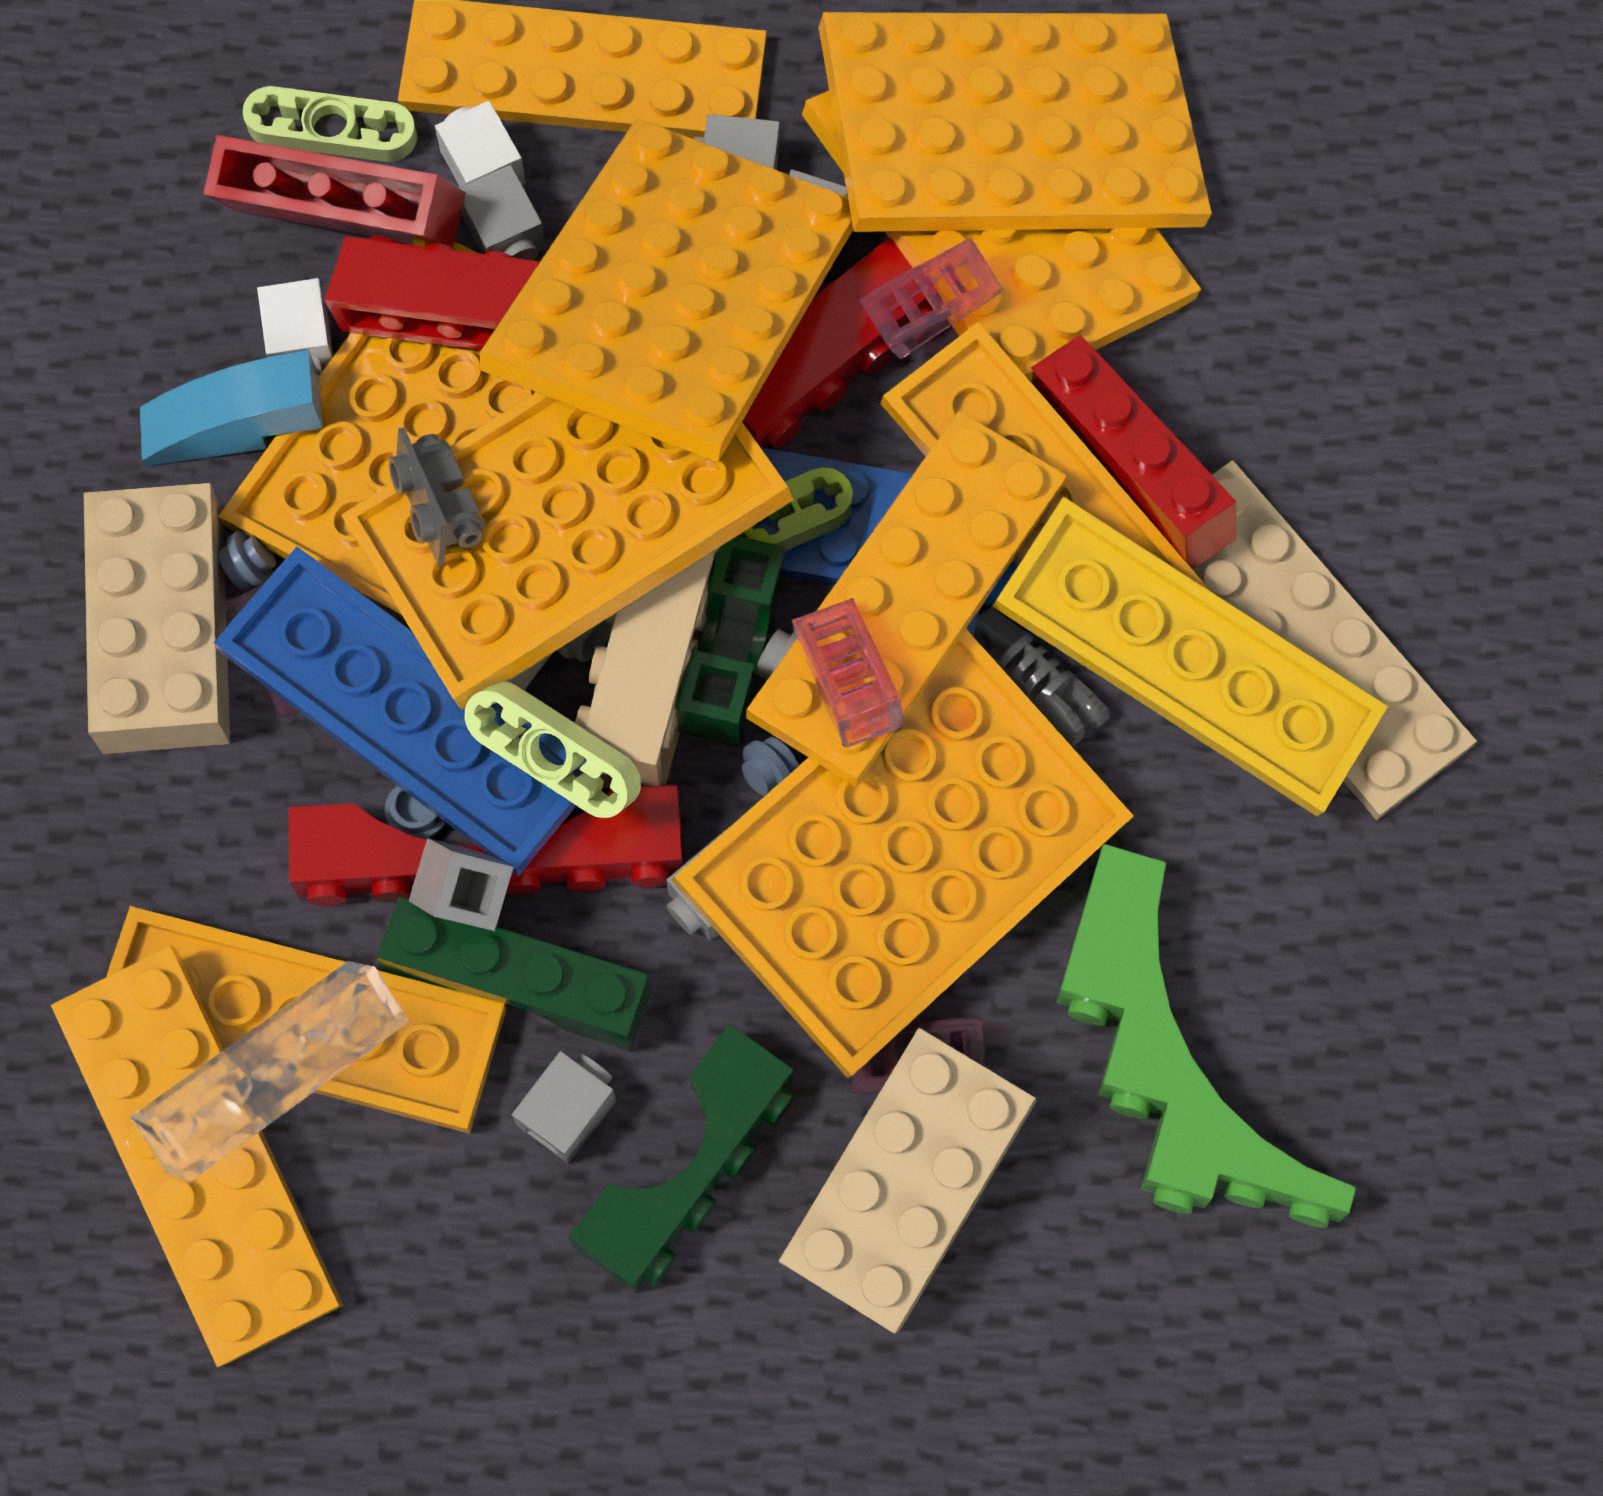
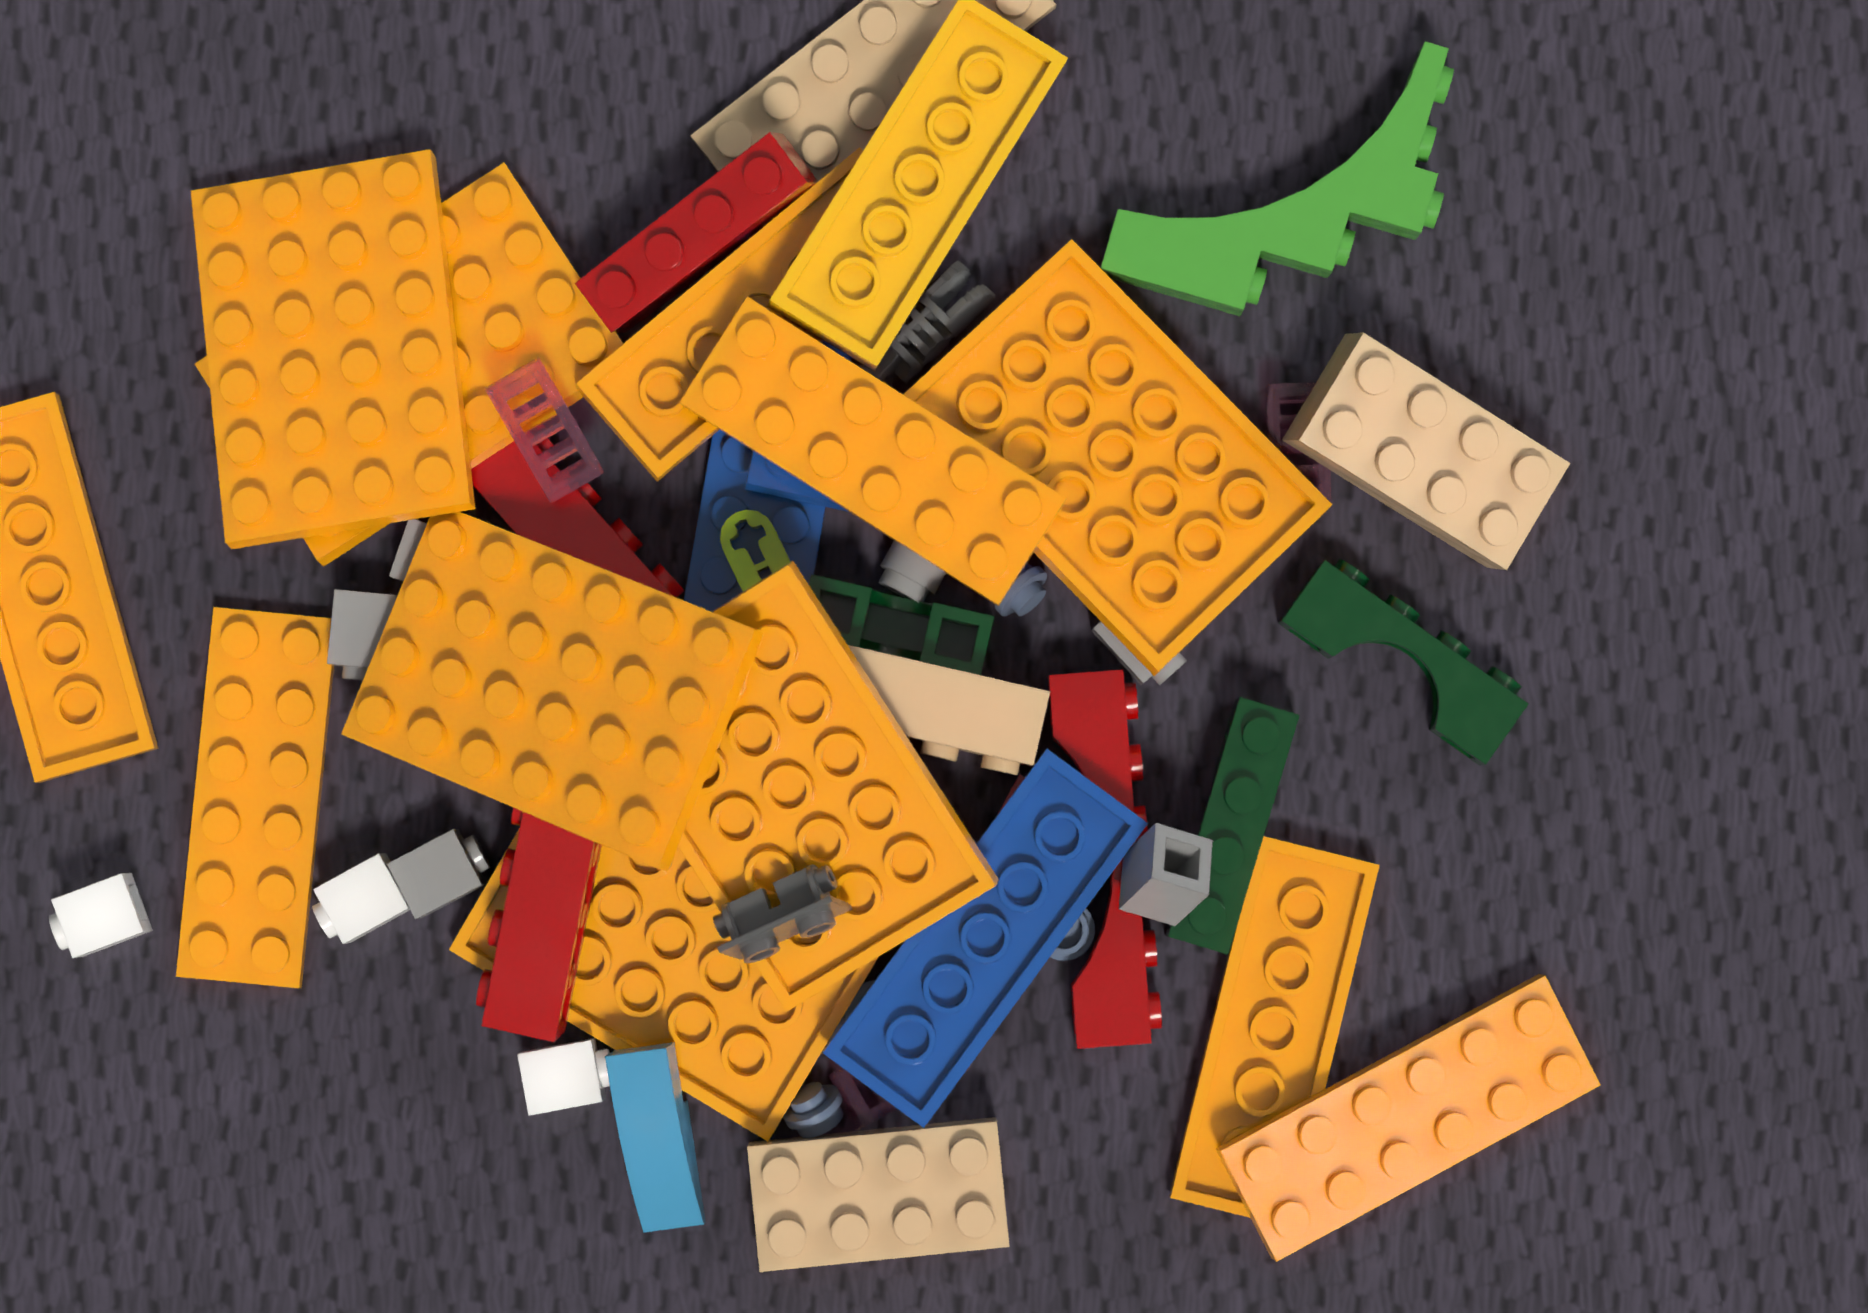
camera: 90 degrees left, 15 degrees up
(269, 1070) = (1347, 1043): clear brick -> none
(317, 104) = (332, 1105): yellowish green beam -> none
(334, 192) = (424, 1042): red brick -> none
(566, 1104) = (1354, 772): light grey brick -> none
(579, 744) = (1062, 782): yellowish green beam -> none
(862, 710) = (1017, 487): clear pink slope -> none

